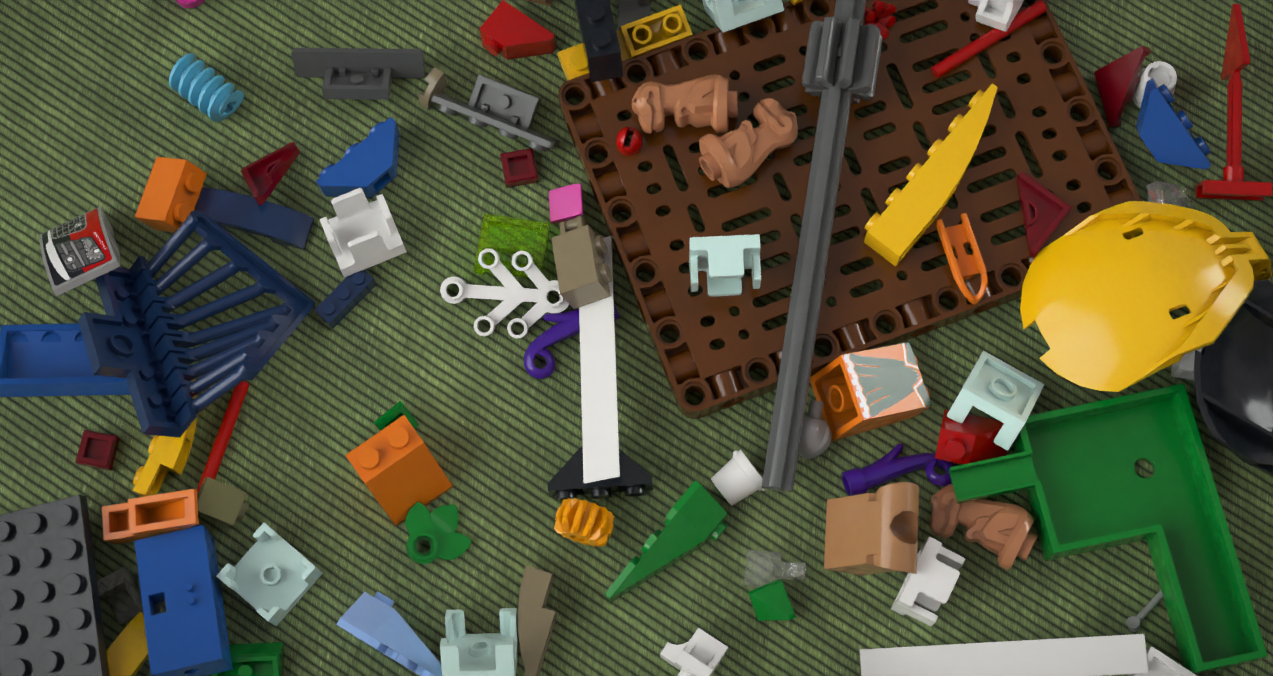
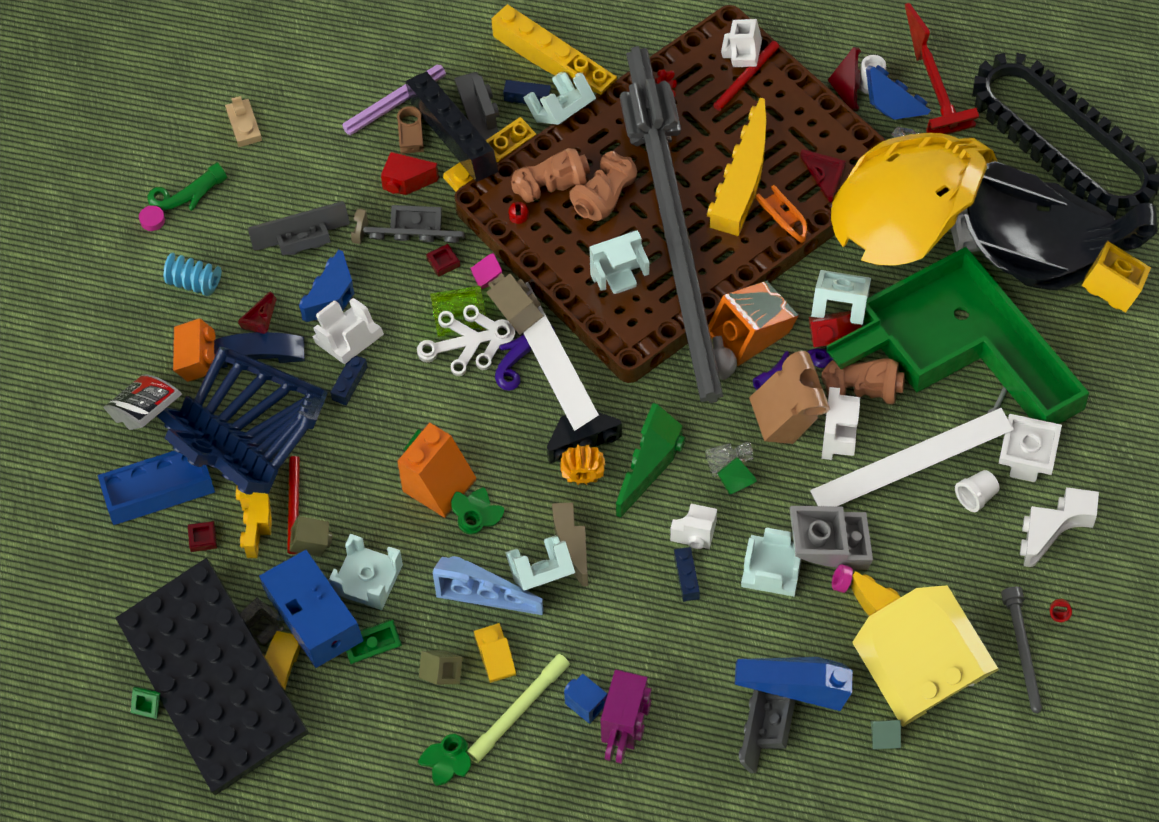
camera: 20 degrees left, 15 degrees down
(150, 516) = (262, 557): orange slope -> none
(737, 478) = (682, 403): white piece -> none

